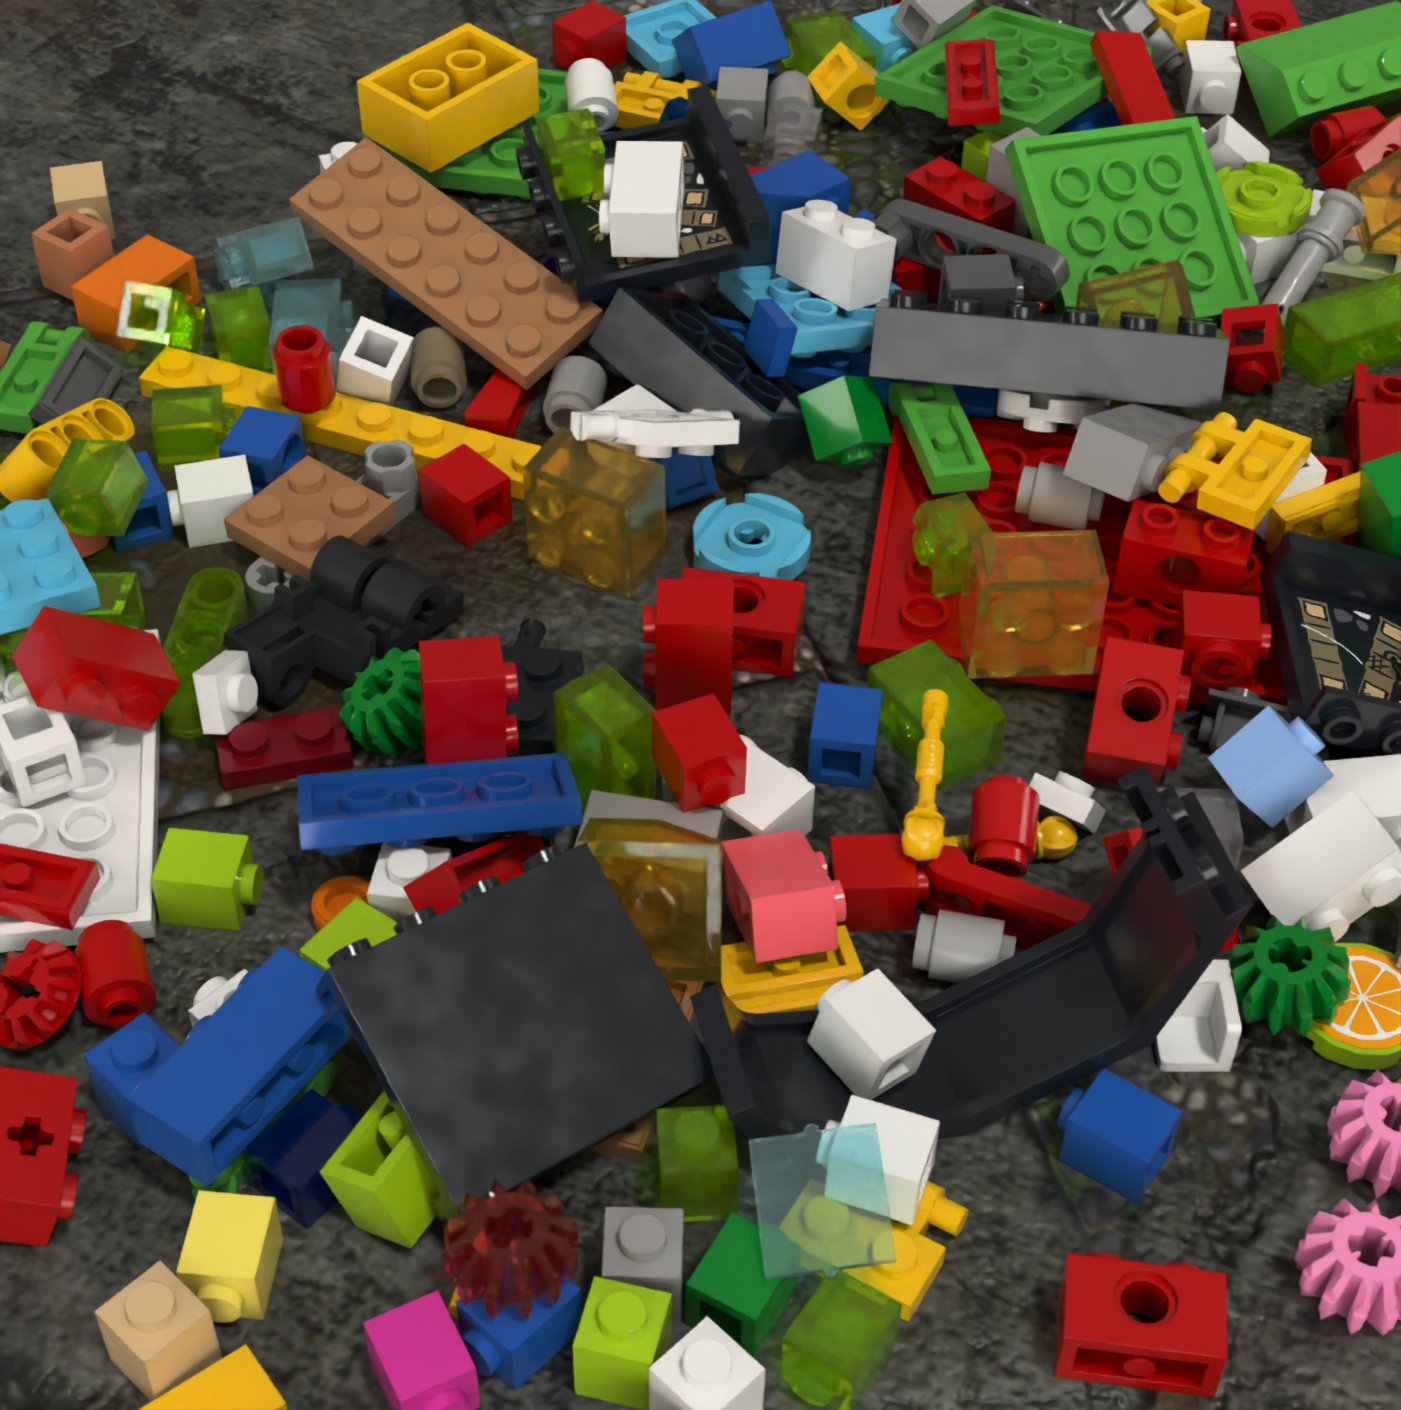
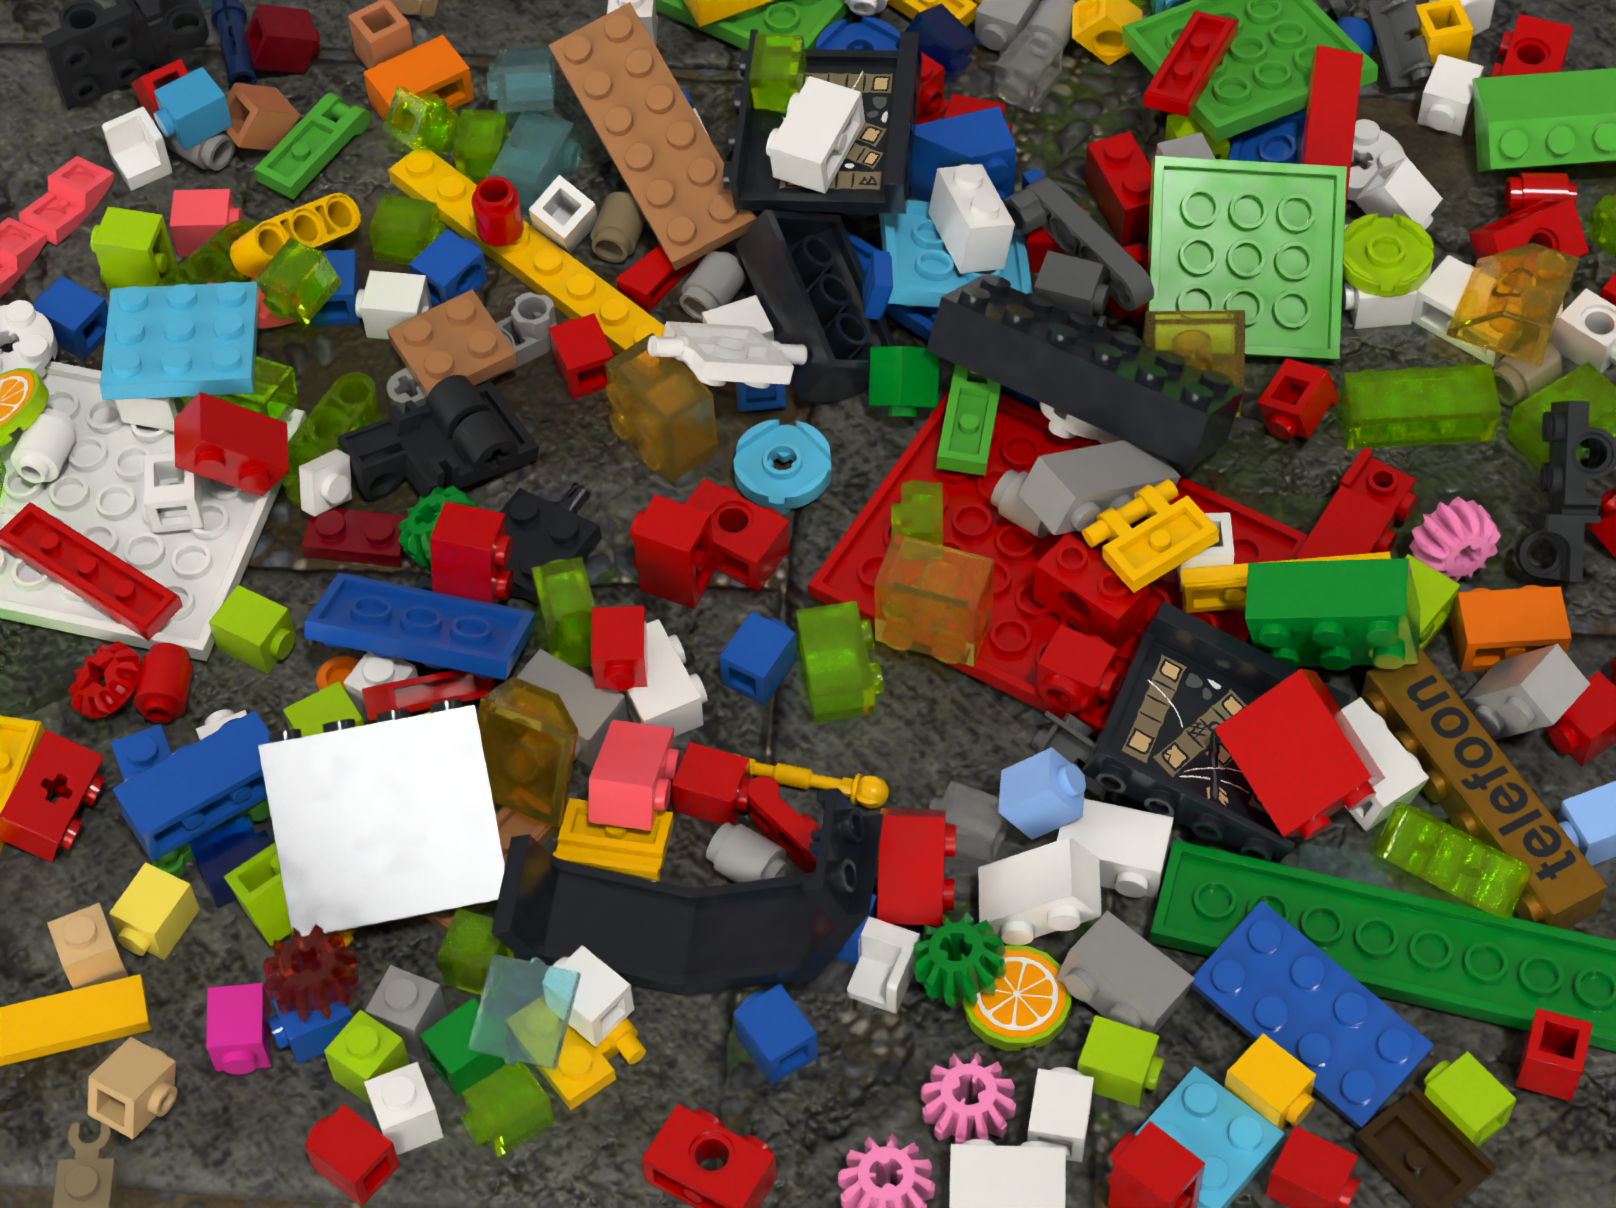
camera: 25 degrees right, 10 degrees up
(77, 379) = (337, 166): dark grey tile -> none
(869, 1034) = (630, 903): white brick -> none
(924, 824) = (752, 759): yellow piece -> none
(1003, 825) = (824, 766): red brick -> none
(1070, 799) = (890, 767): white plate -> none
(1143, 679) = (979, 683): red brick -> none
(1317, 244) = (1409, 317): light grey pin -> none

